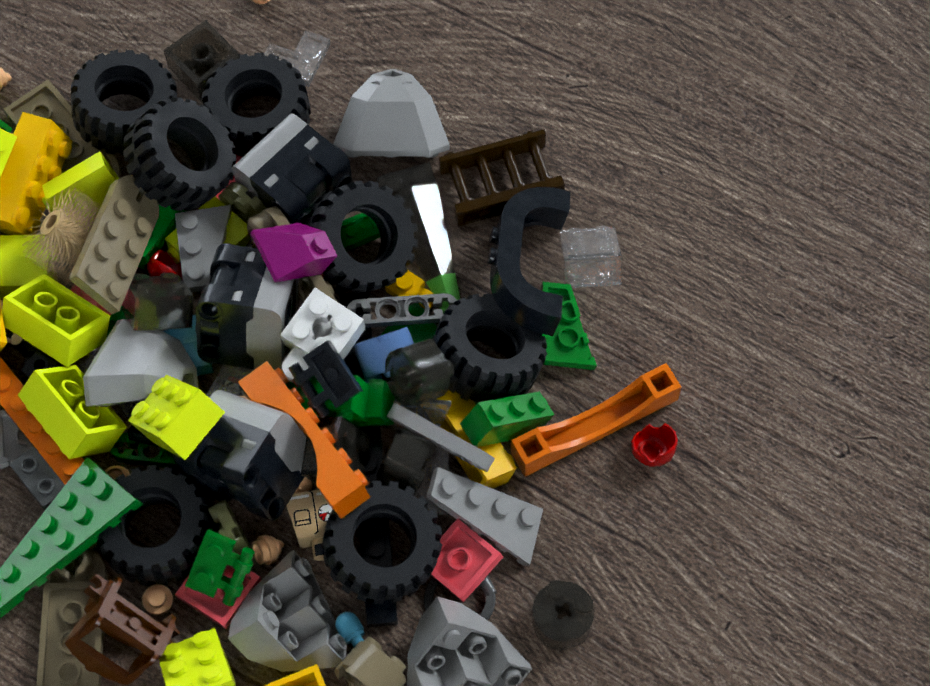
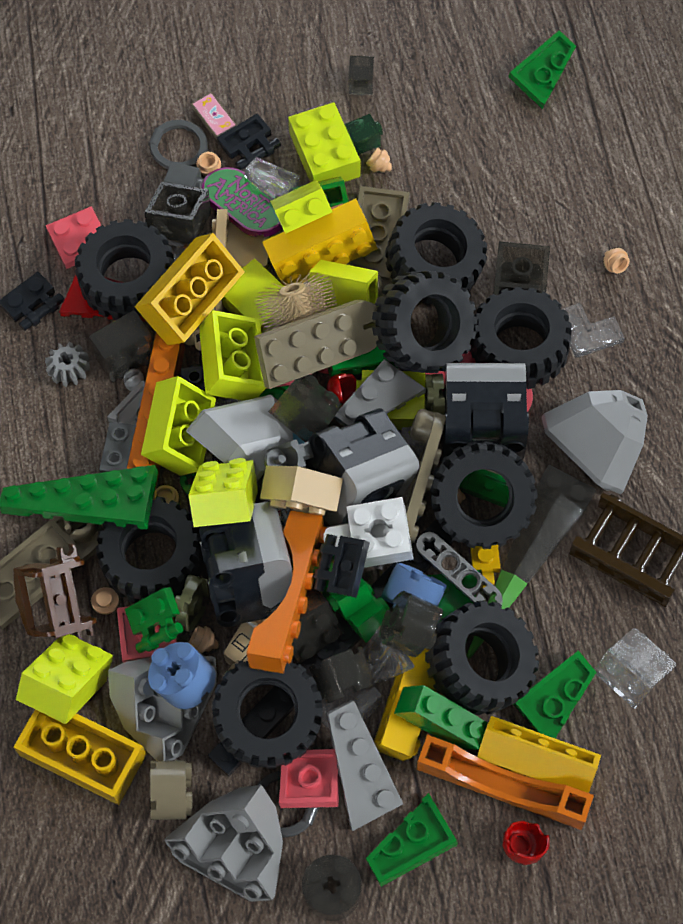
camera: 50 degrees right, 0 degrees up
(192, 344) = (289, 454): none -> dark grey hips
(232, 356) = (301, 489): none -> tan brick
(290, 582) = (181, 675): none -> medium blue brick
(294, 250) = (417, 458): magenta slope -> none
(350, 628) = (194, 746): medium azure cylinder -> none
(440, 437) = (379, 683): light grey beam -> none
(512, 293) = (535, 644): black arch -> none
(580, 527) = (413, 843): none -> green wing
(597, 378) = (537, 755): none -> yellow brick

